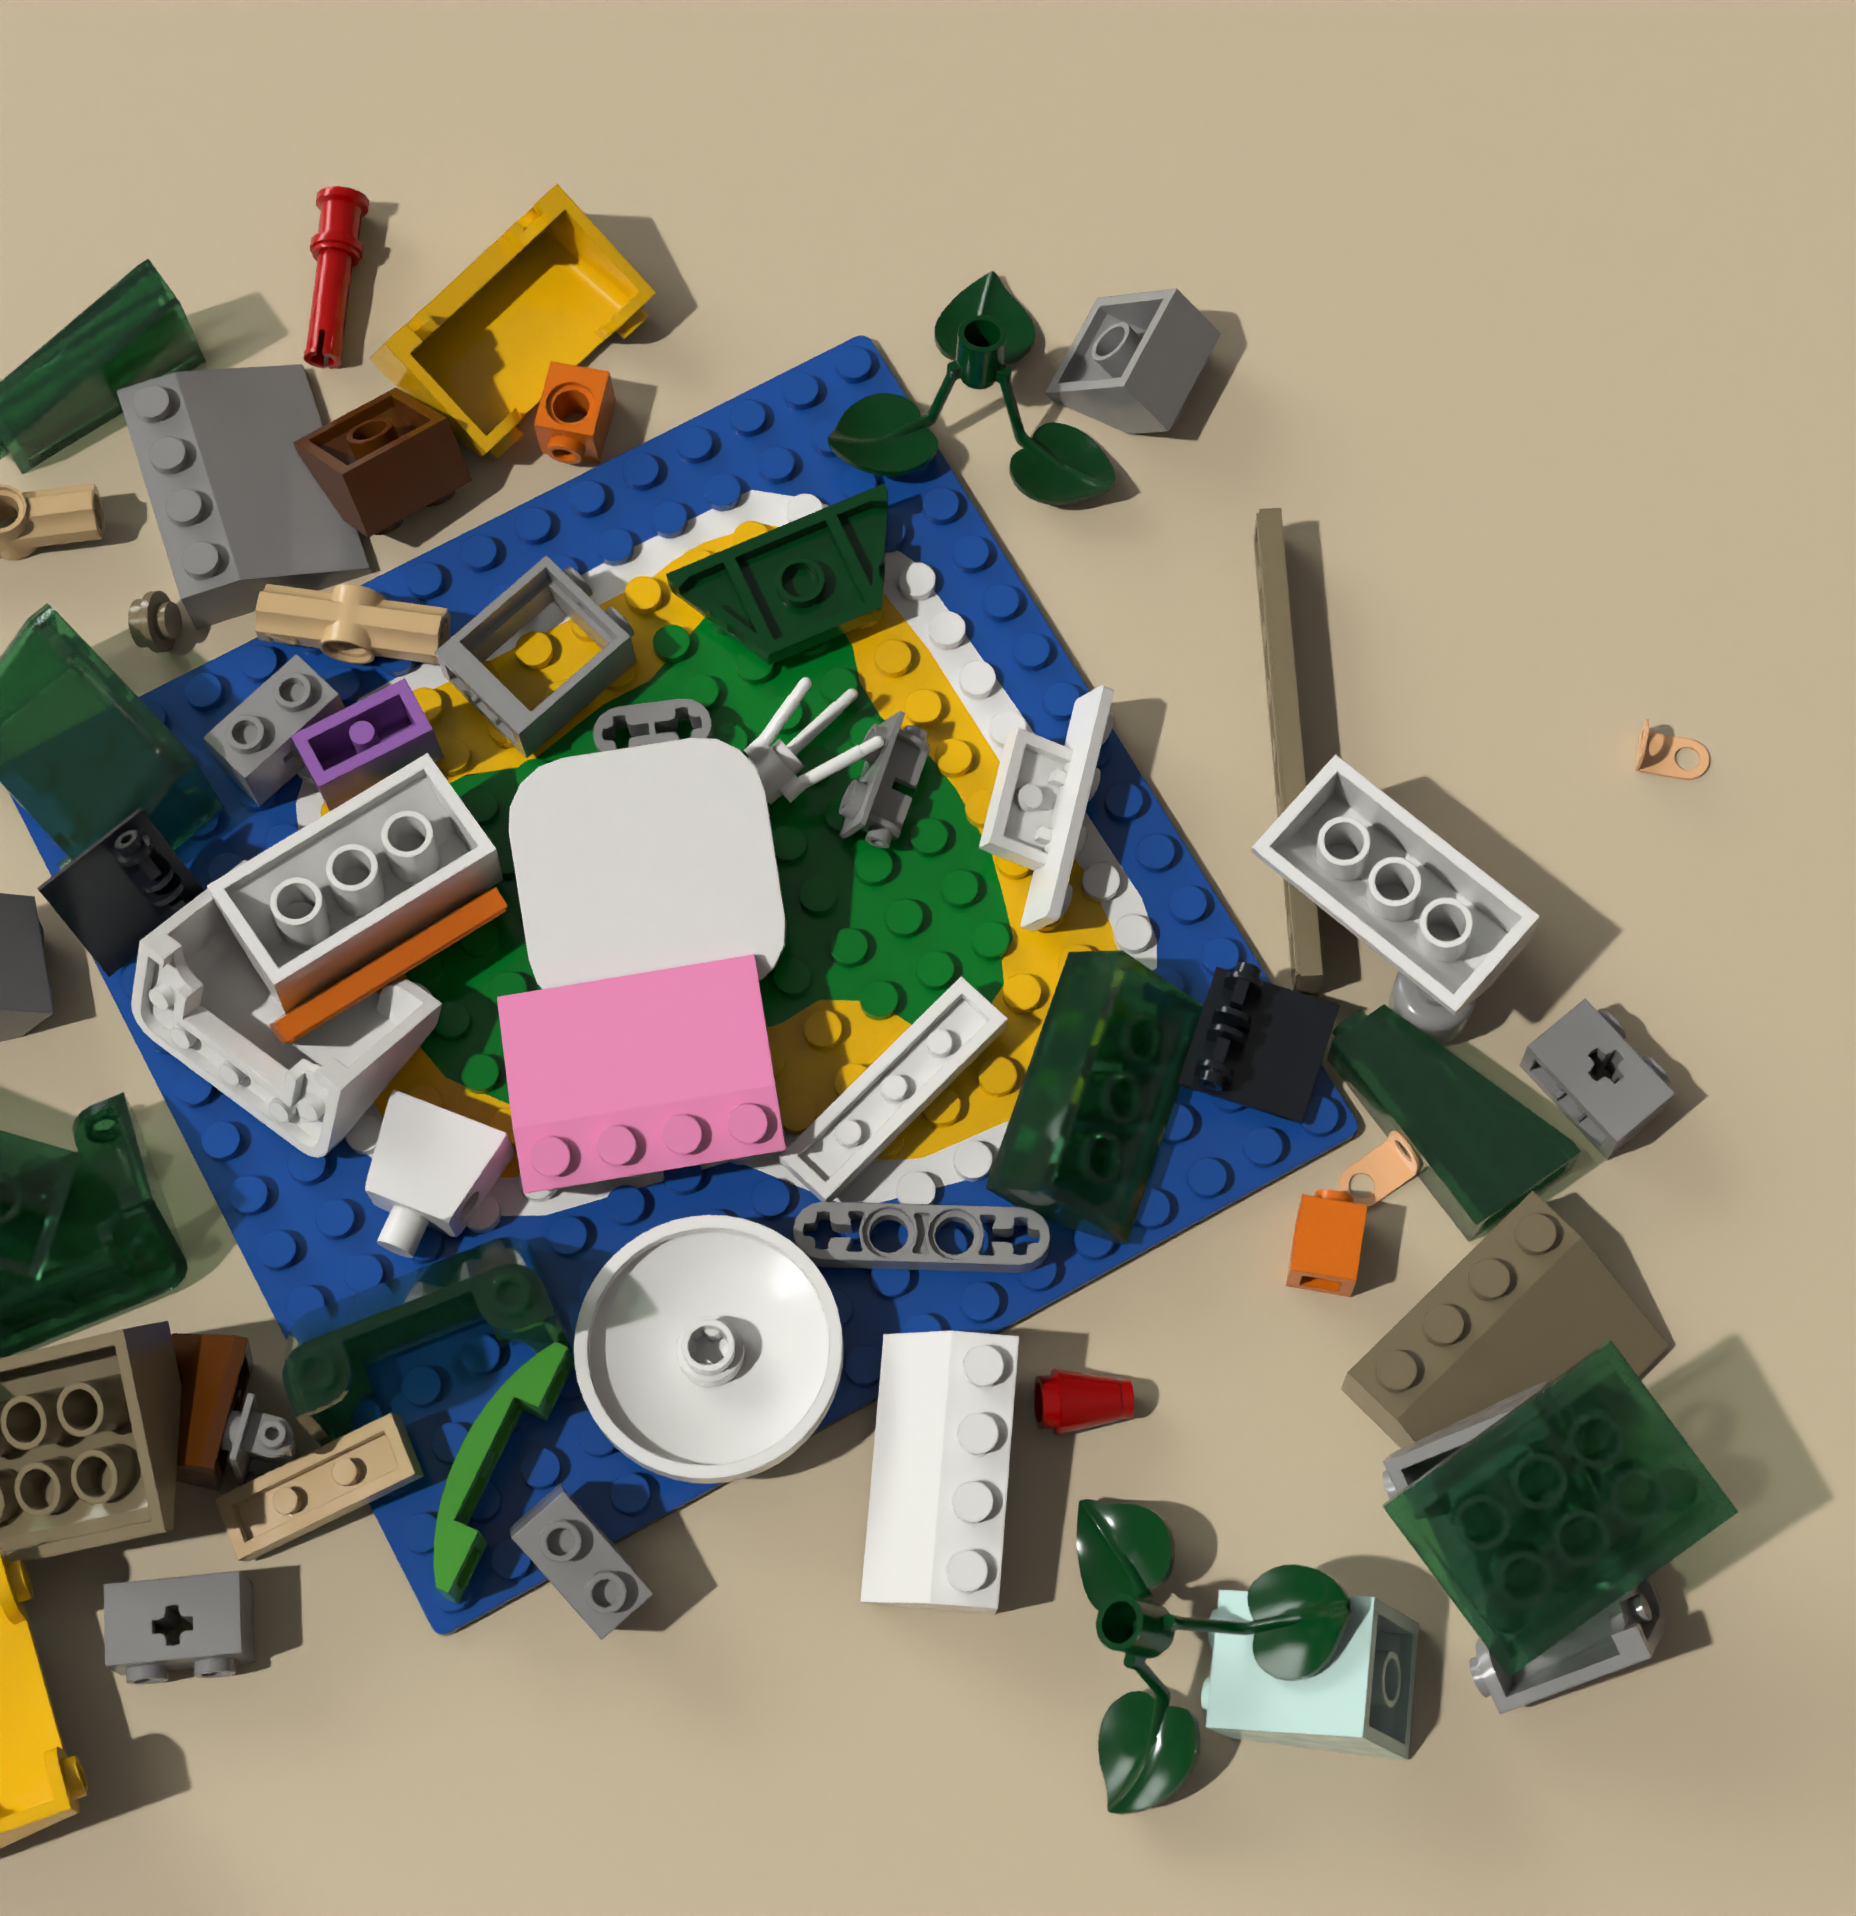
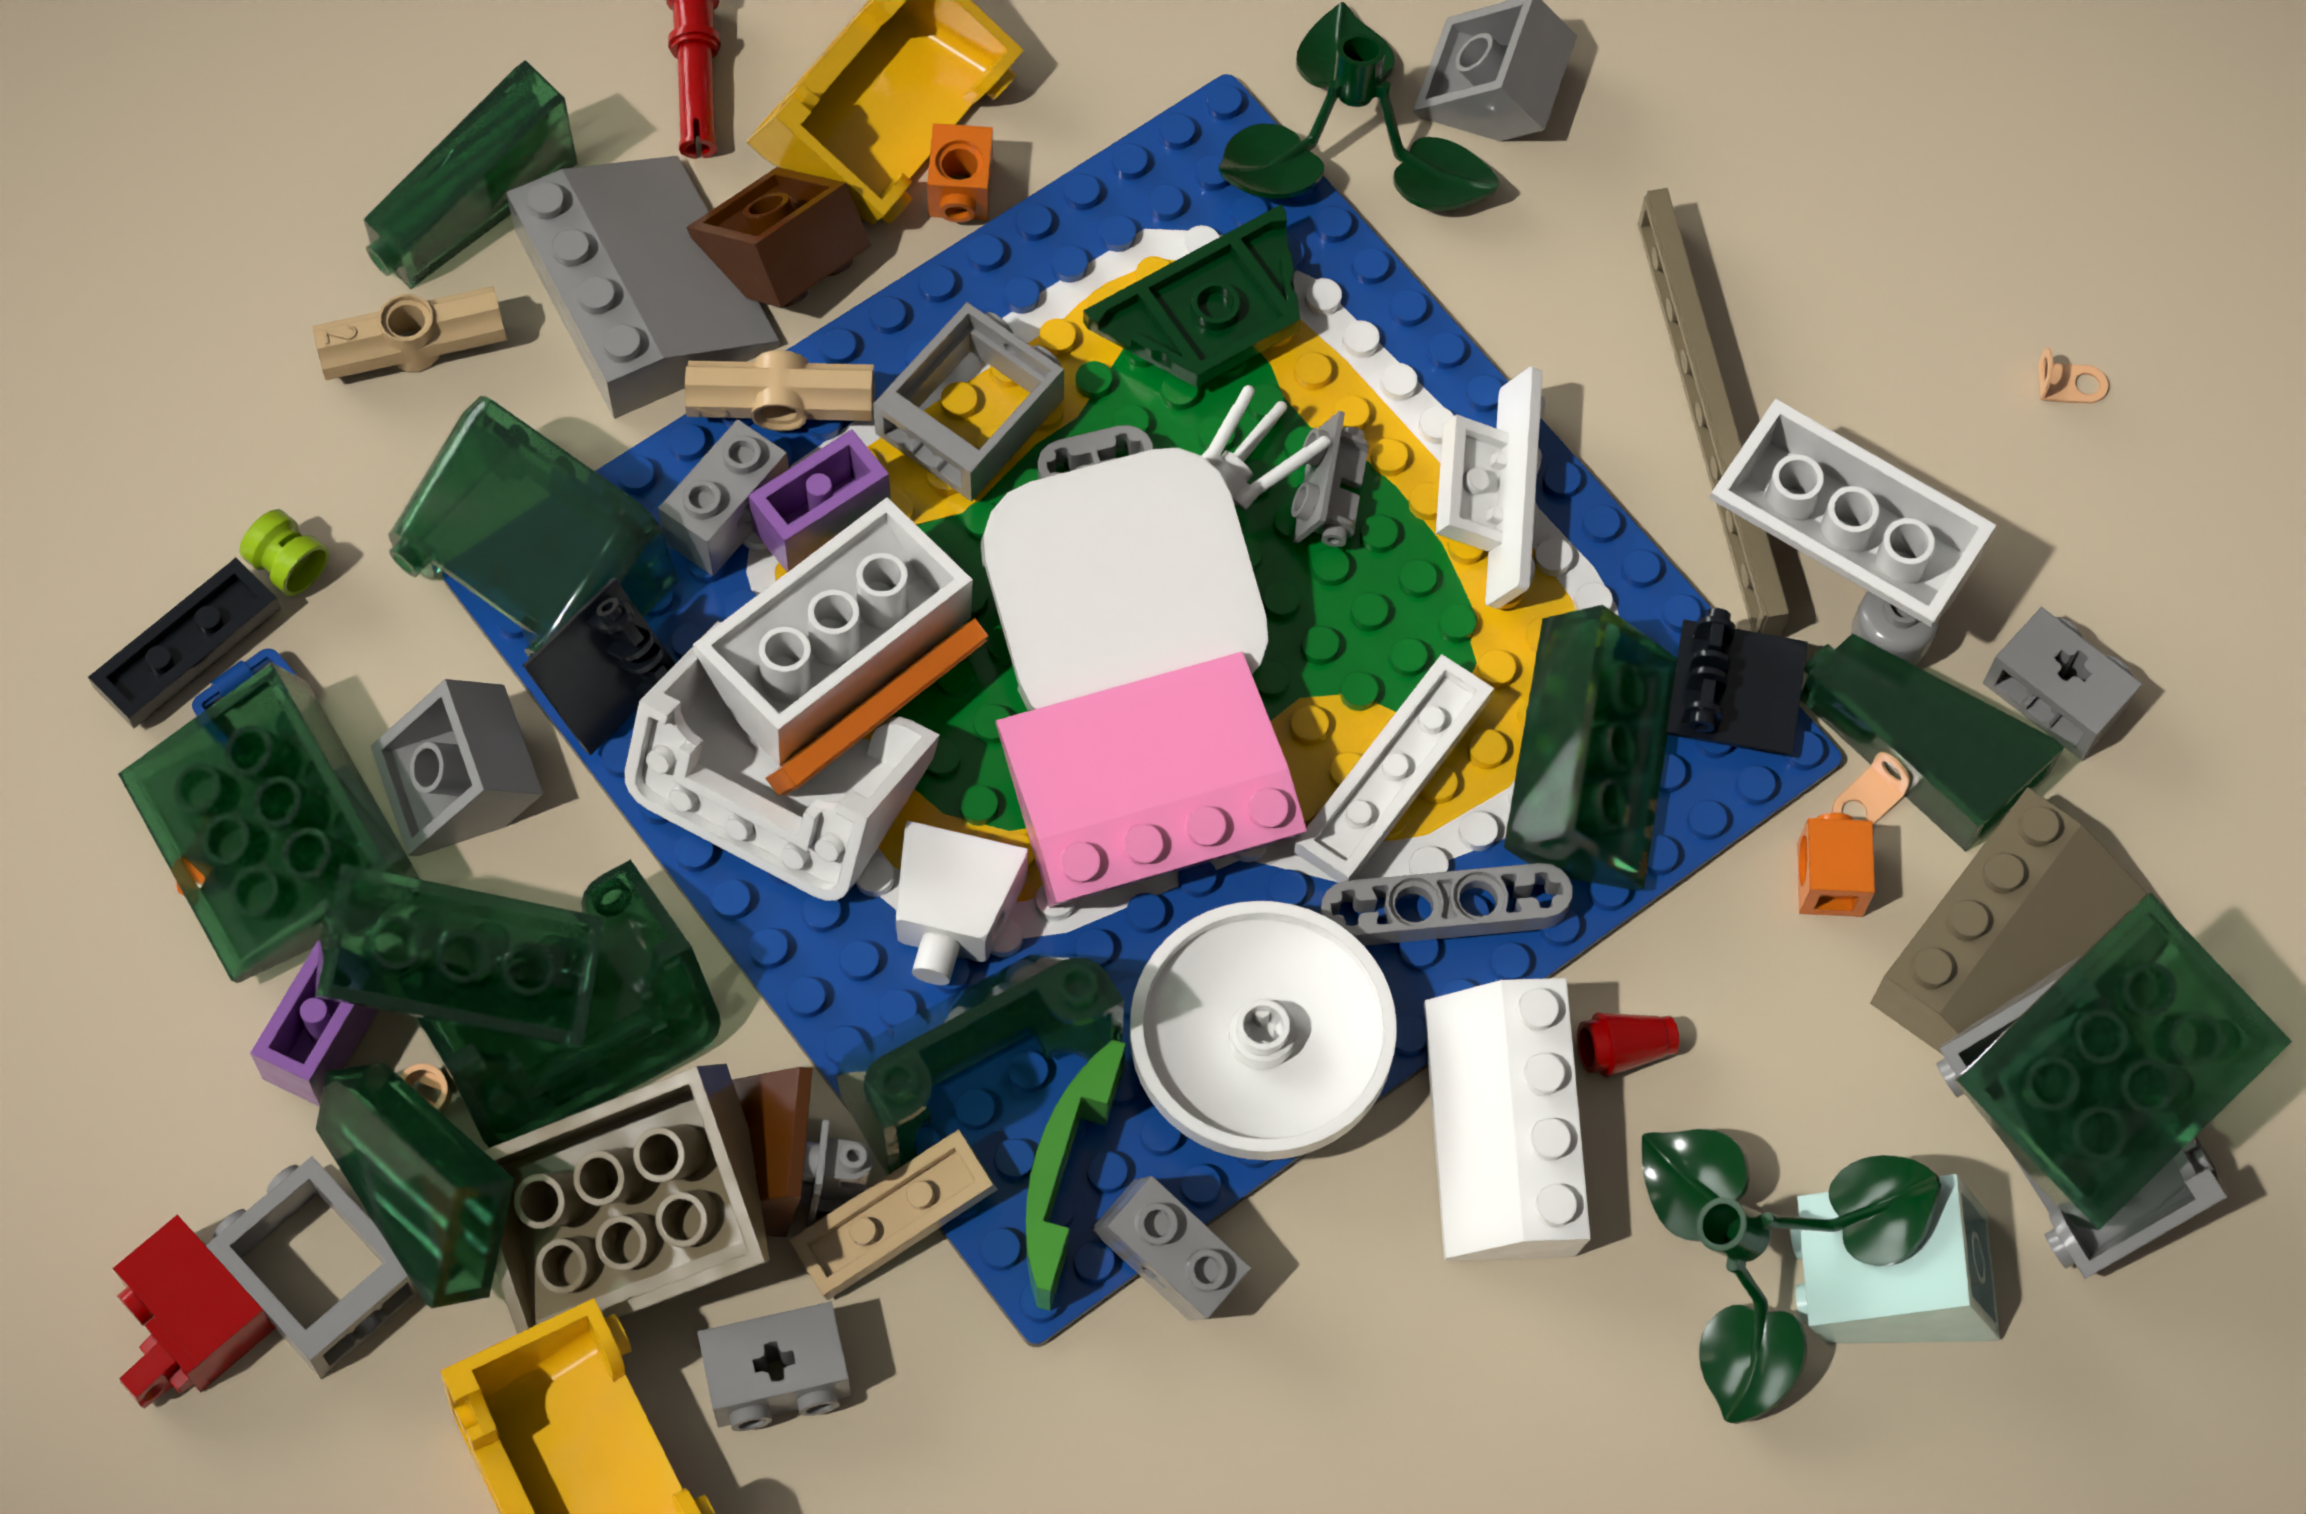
camera: 15 degrees left, 5 degrees down
(154, 622) = (576, 412): dark tan plate -> none

